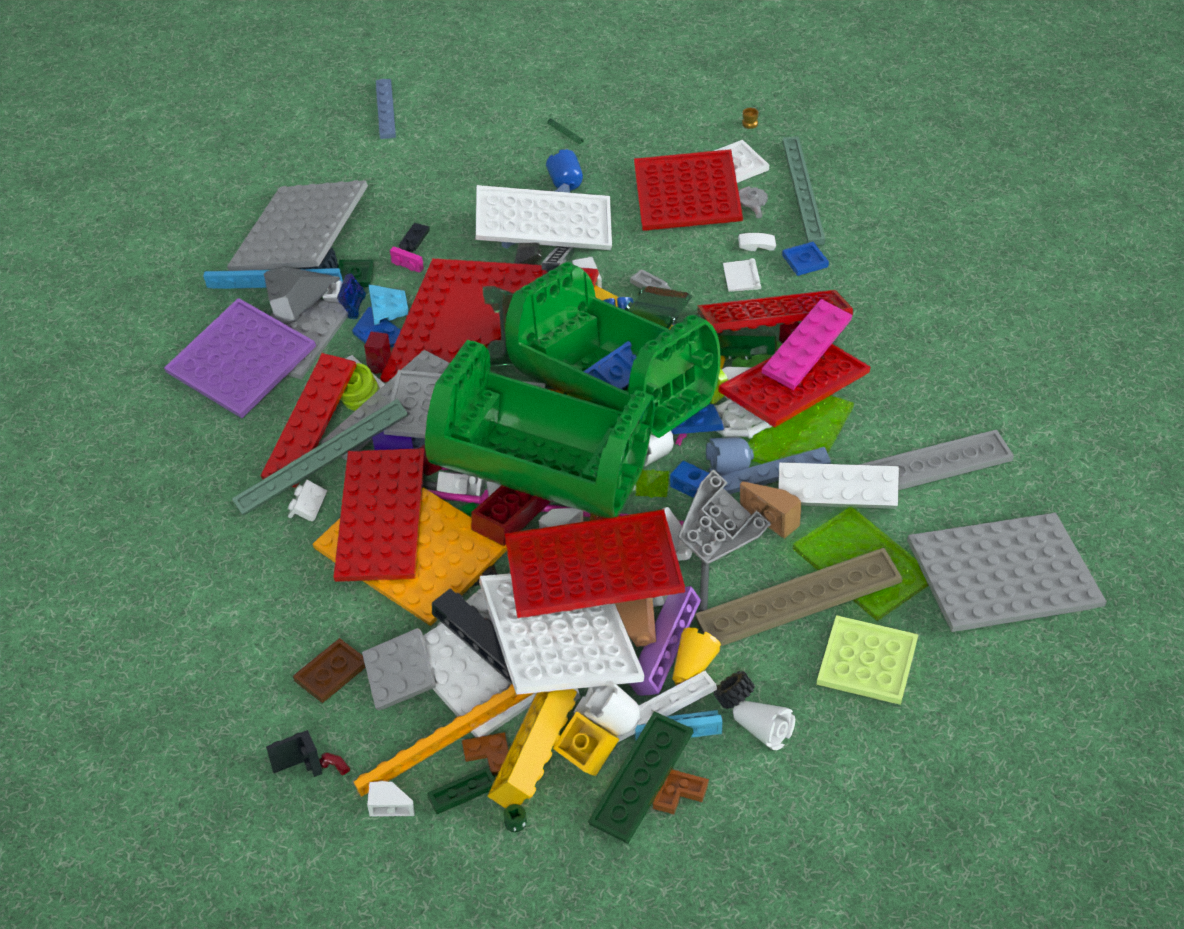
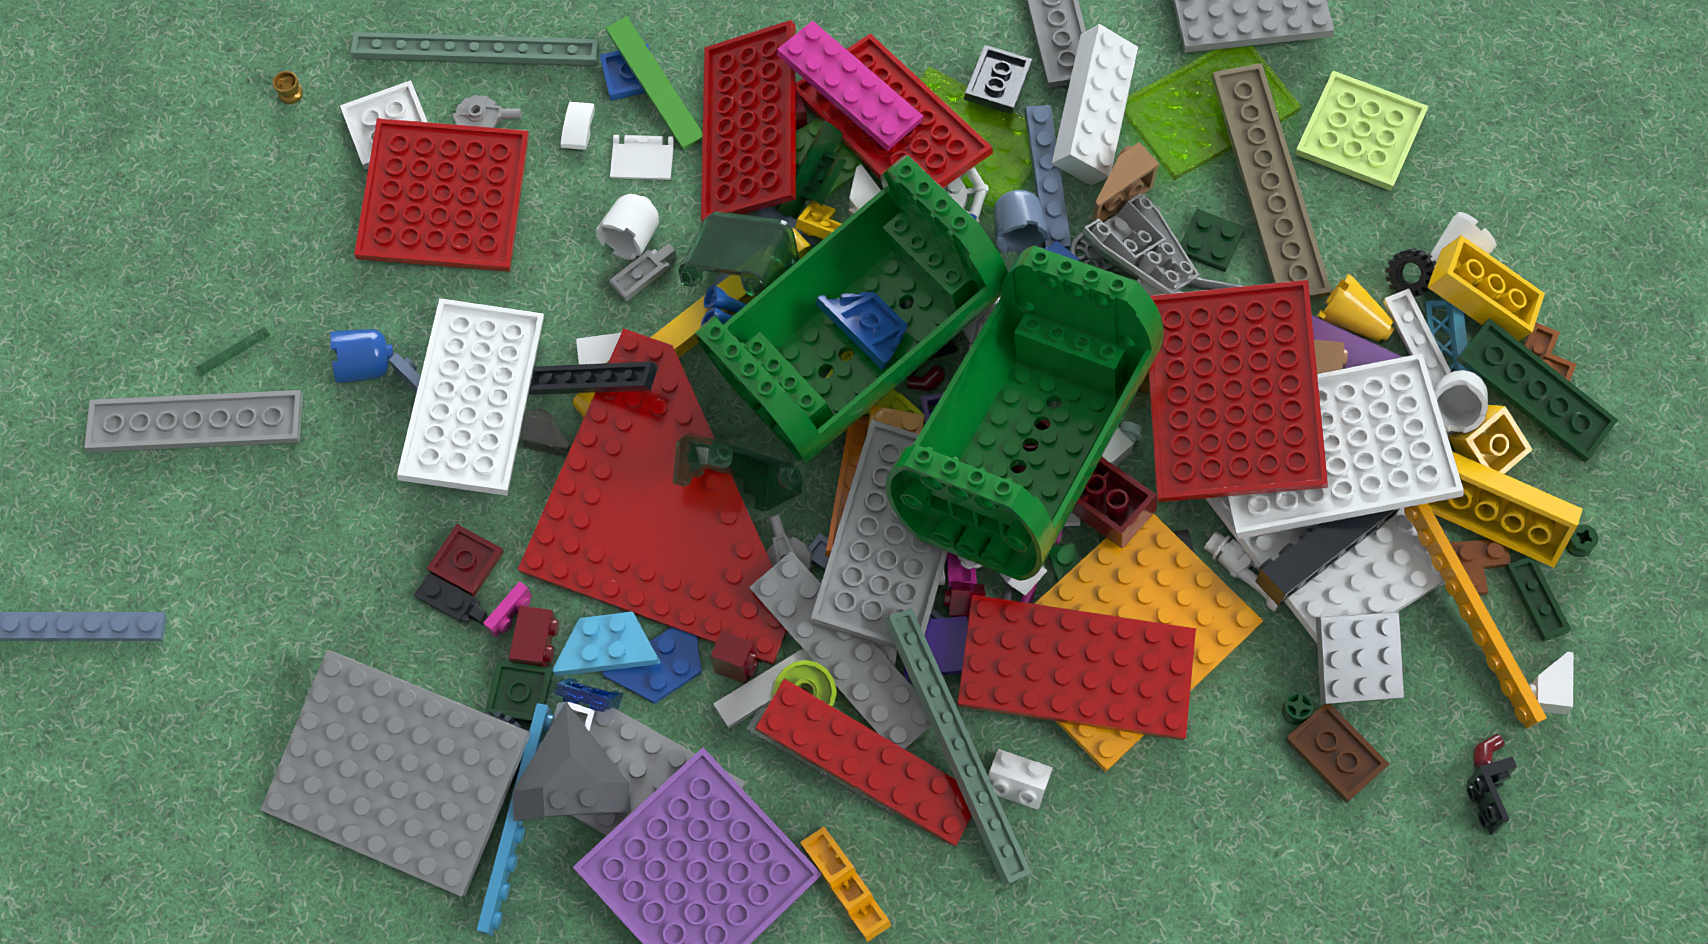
camera: 80 degrees left, 20 degrees up
(230, 430) = (846, 884): none -> light orange slope
(360, 640) = (1299, 702): none -> dark green wheel
(389, 272) = (534, 636): none -> dark red brick
(438, 239) = (465, 560): none -> dark red plate
(516, 124) = (194, 421): none -> light grey plate
(682, 269) = (628, 226): none -> white cylinder
(721, 730) = (1485, 288): none -> yellow brick
(743, 573) = (1211, 239): none -> dark green plate
(796, 266) = (654, 83): none -> bright green tile
(849, 435) = (998, 79): none -> plate

